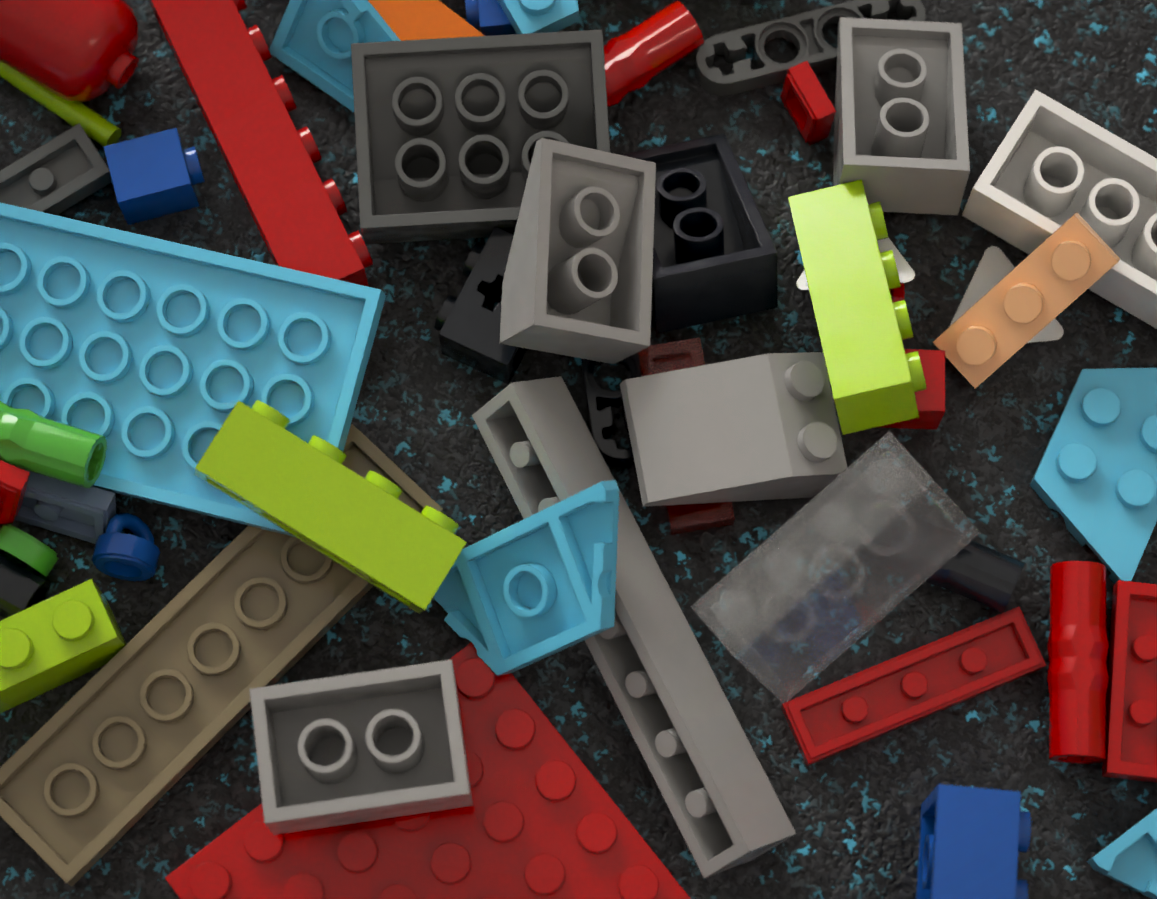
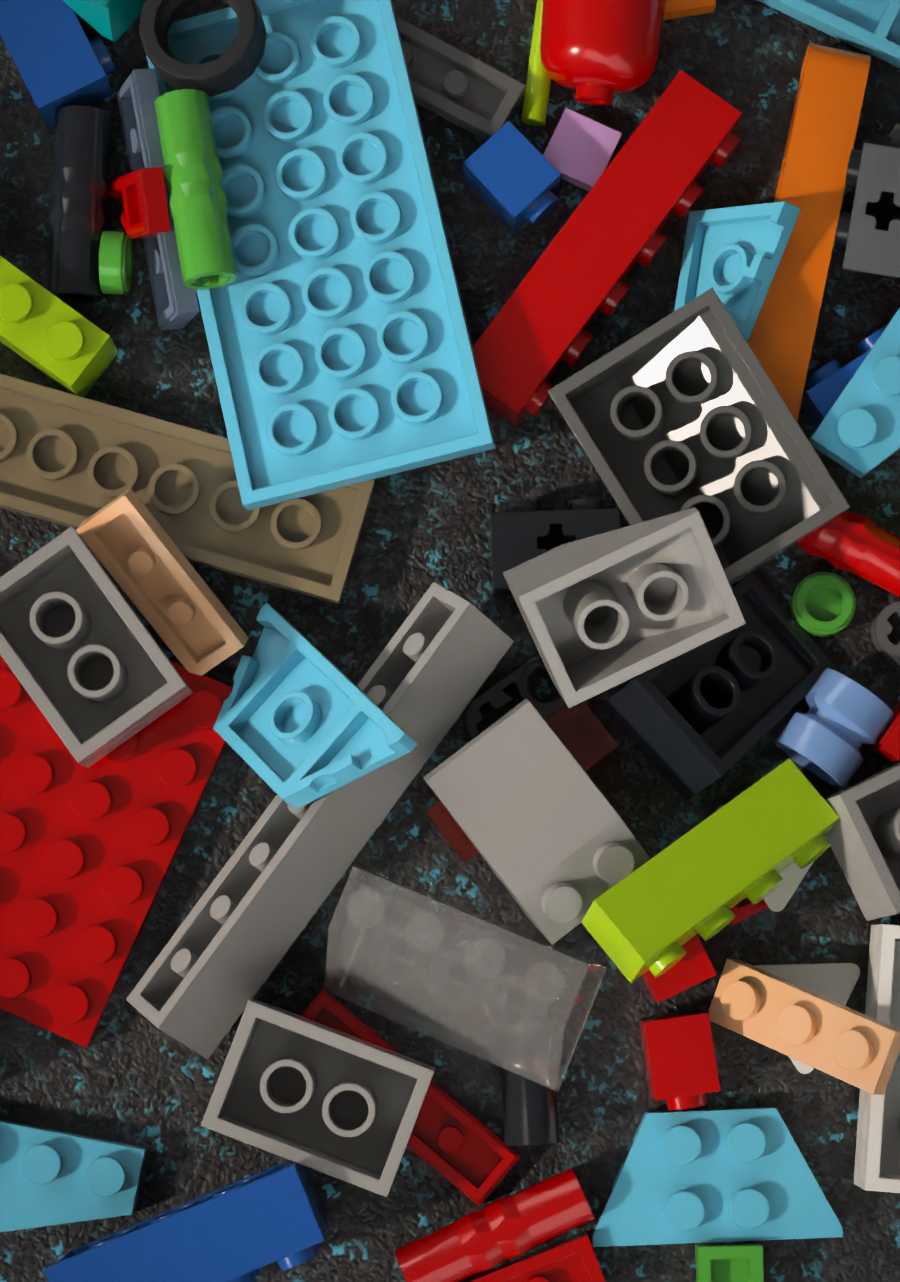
camera: 60 degrees right, 10 degrees up
(125, 554) = (156, 351): blue tile -> none
(161, 107) = (581, 149): none -> lavender tile
(330, 506) = (270, 507): lime brick -> none
(339, 647) = (162, 583): none -> light nougat plate
(665, 115) = (822, 604): none -> bright green tile
(775, 146) = (834, 728): none -> medium blue wheel
(881, 744) = (318, 1096): none -> light grey brick
(1000, 425) = (680, 1059): none -> red brick

